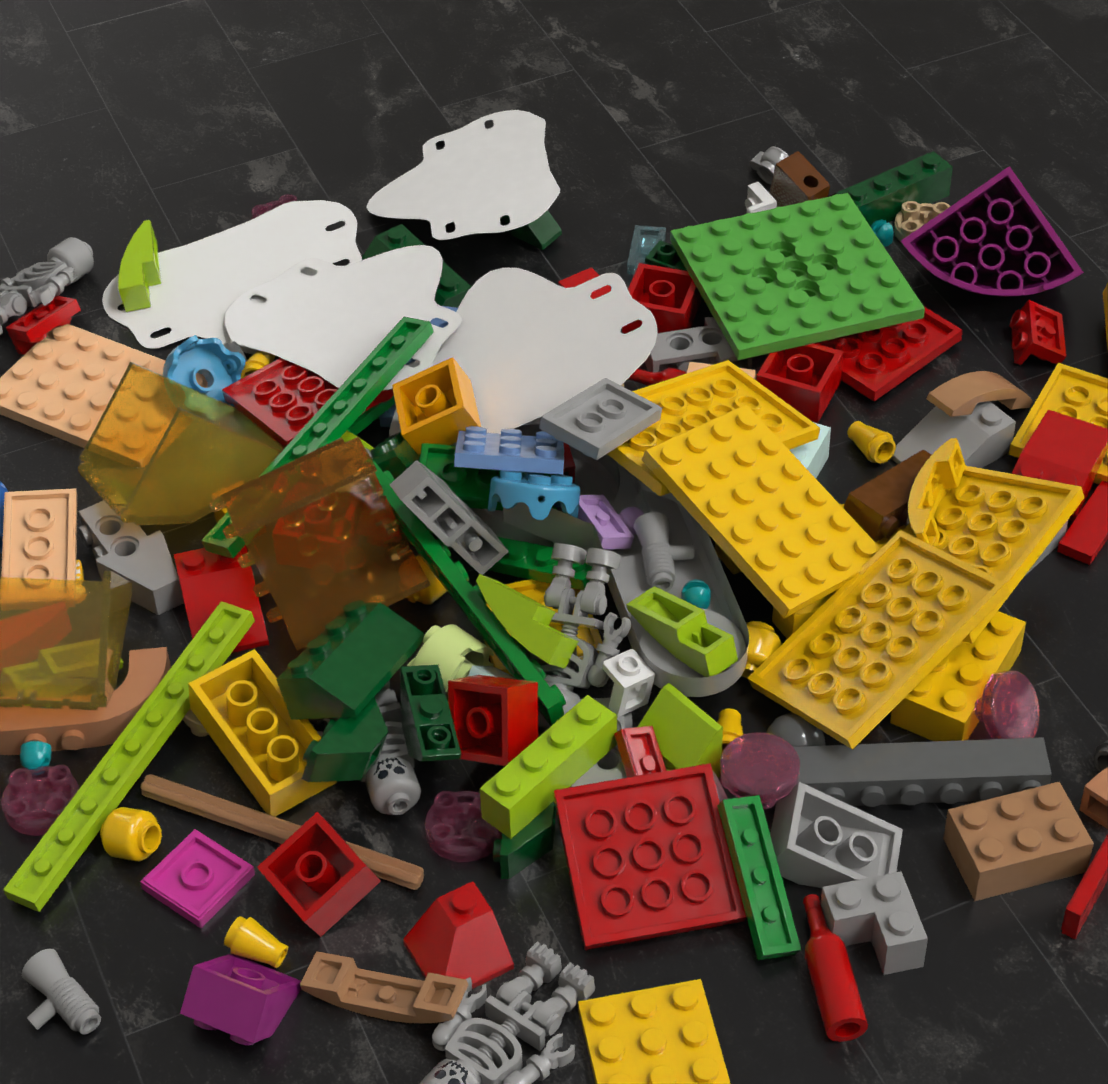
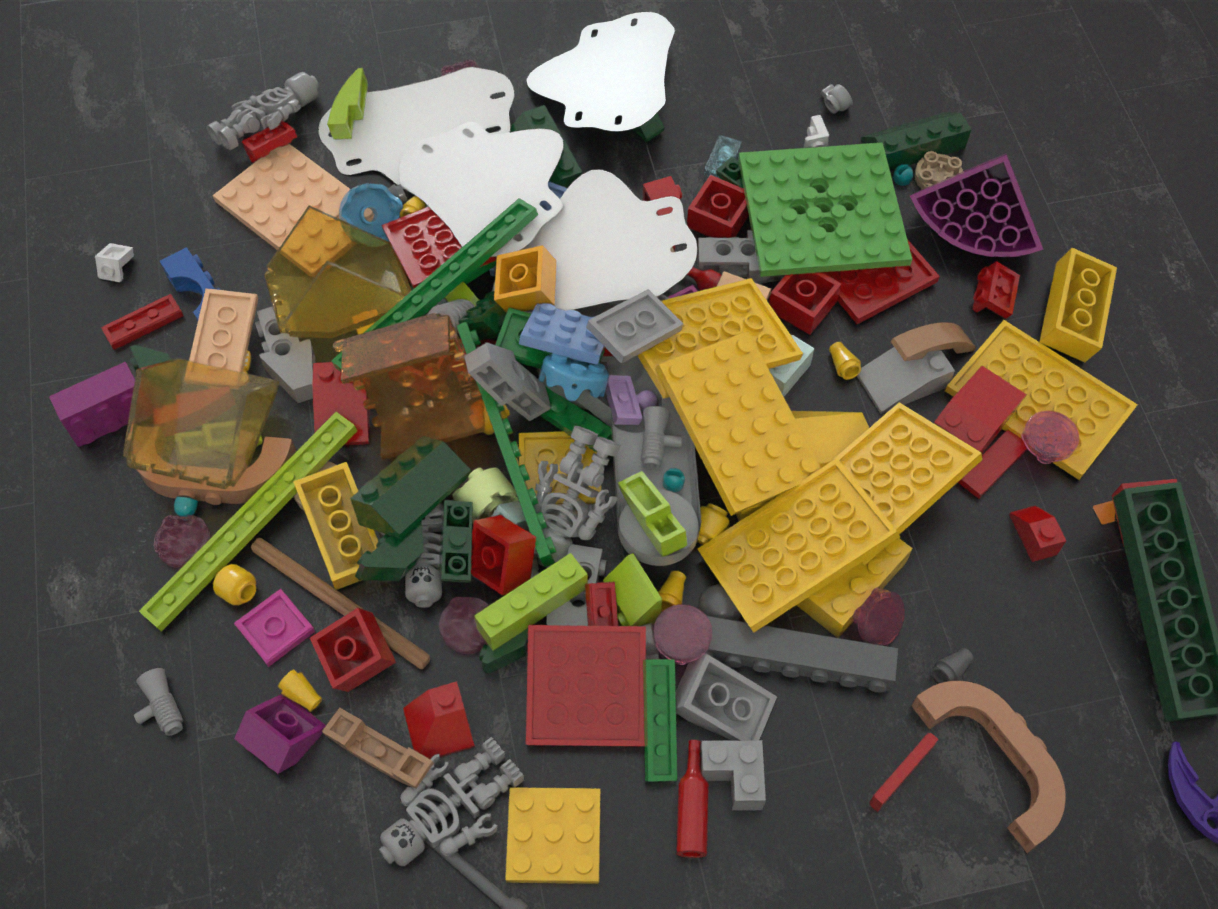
camera: 10 degrees right, 15 degrees up
(527, 622) = (542, 482): lime slope -> none
(631, 680) = (606, 542): white bracket -> none
(797, 181) = (848, 124): reddish brown torso -> none
(883, 502) = (846, 419): reddish brown brick -> none
(938, 473) = (883, 409): yellow slope -> none
(1017, 841) = (856, 727): medium nougat brick -> none

